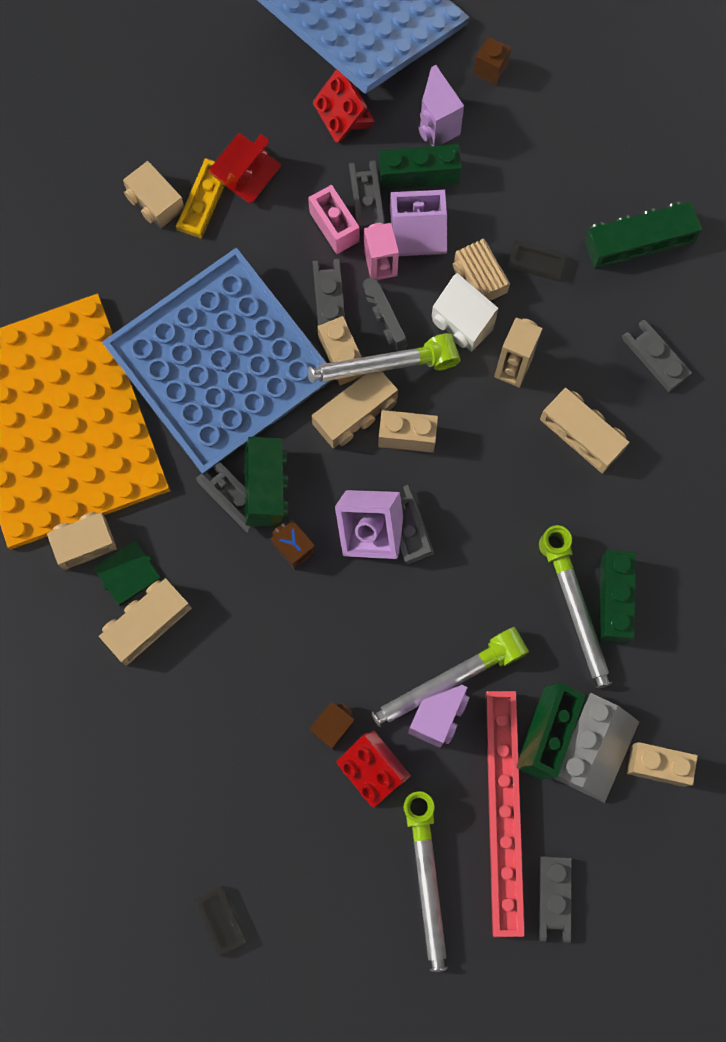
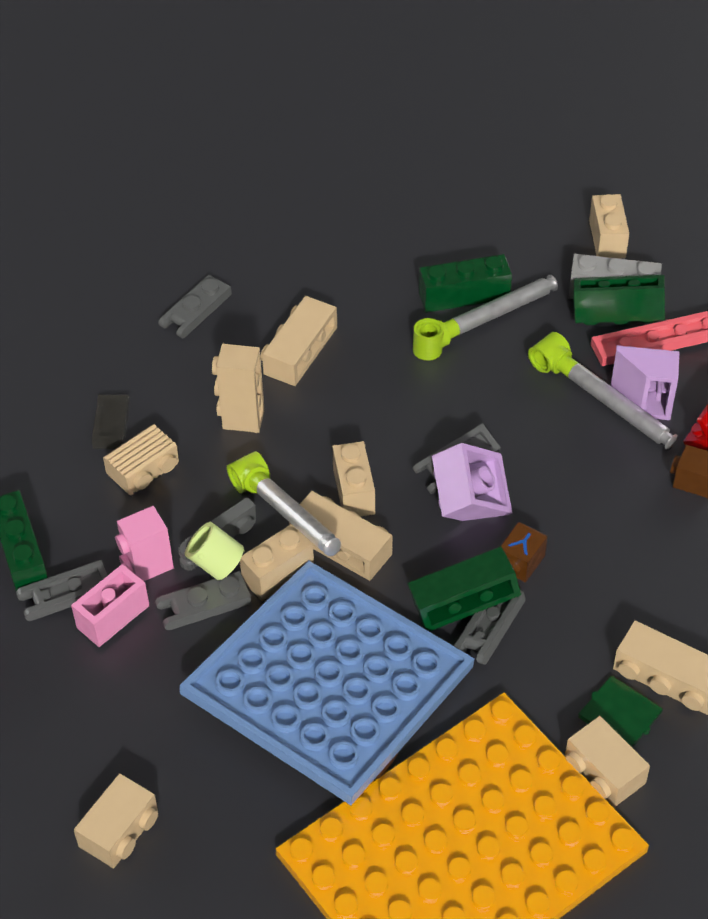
camera: 105 degrees left, 25 degrees down
(200, 202) = (100, 768): yellow tile -> none
(245, 167) = (53, 722): red bracket -> none
(354, 298) = (214, 551): none -> yellowish green piece
(419, 222) = (90, 523): lavender slope -> none
(464, 313) = (199, 455): white slope -> none
(642, 234) = (61, 337): dark green brick -> none

